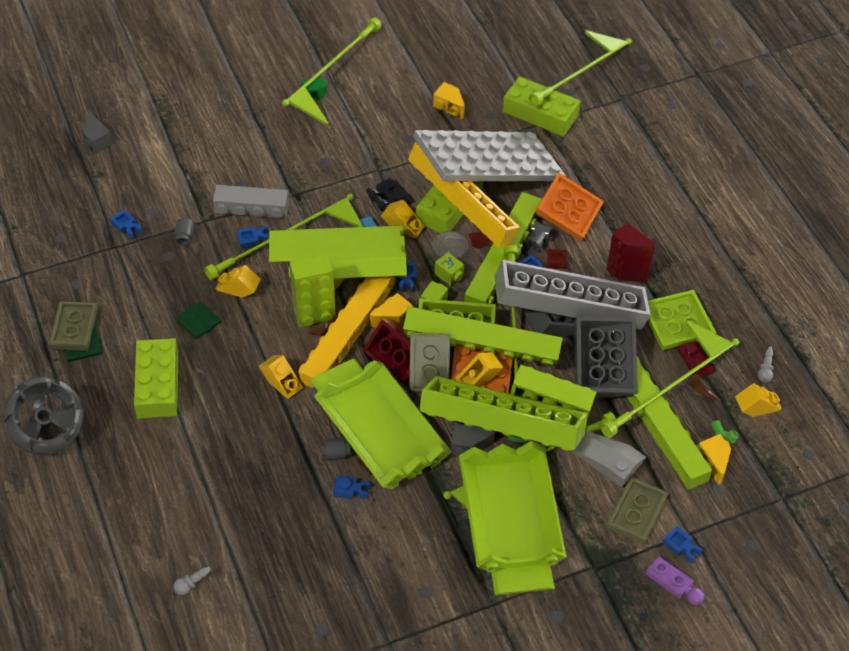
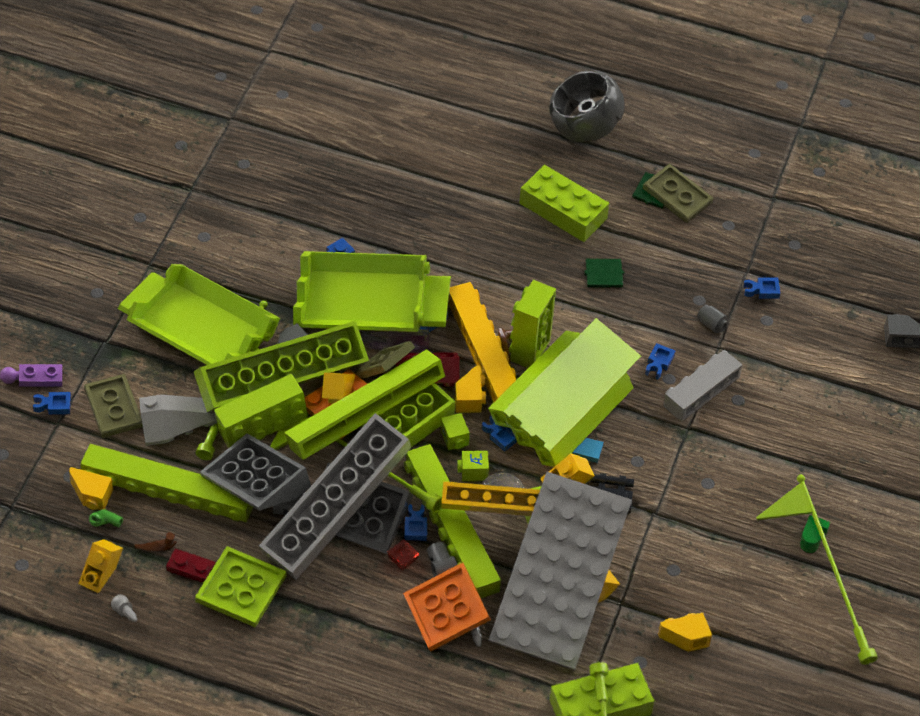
camera: 130 degrees right, 0 degrees up
(183, 585) = (362, 116): light grey bar -> none
(238, 282) = (614, 313): yellow slope -> none
(281, 375) = (486, 275): yellow slope -> none
(341, 210) = (631, 444): lime piece -> none
(478, 239) = (488, 523): clear red plate -> none
(630, 255) = (333, 585): dark red slope -> none
(713, 346) = (183, 578): lime piece -> none

